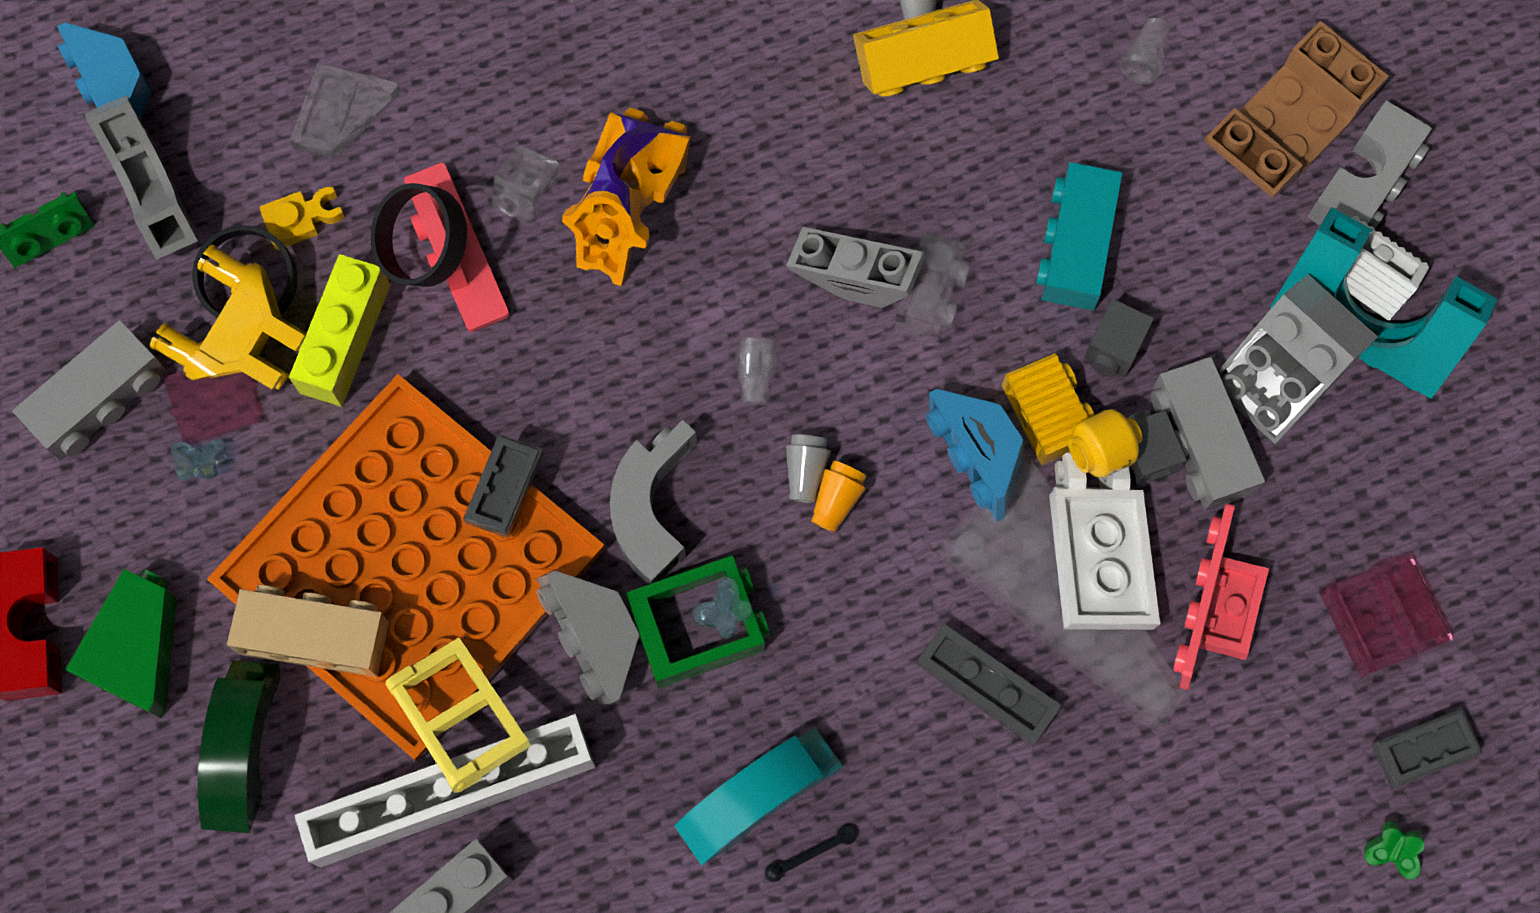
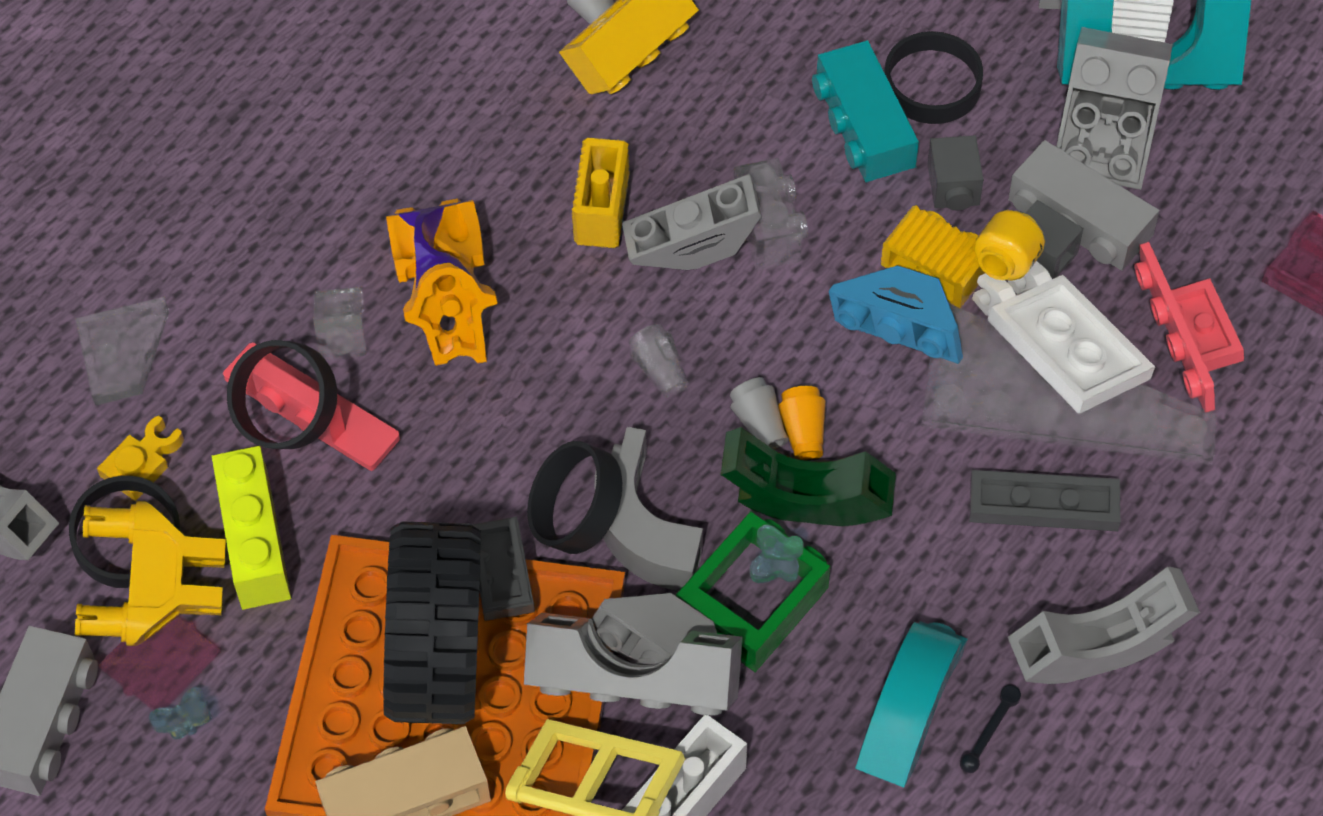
camera: 30 degrees left, 15 degrees down
(394, 516) = (432, 622): none -> black tyre
(503, 603) = (568, 657): none -> light grey arch
(619, 474) = (603, 506): none -> black tyre
(794, 556) = (796, 490): none -> dark green arch
(802, 188) = (600, 192): none -> yellow brick
(948, 835) = (1078, 646): none -> light grey arch
(1170, 193) = (938, 42): none -> black tyre

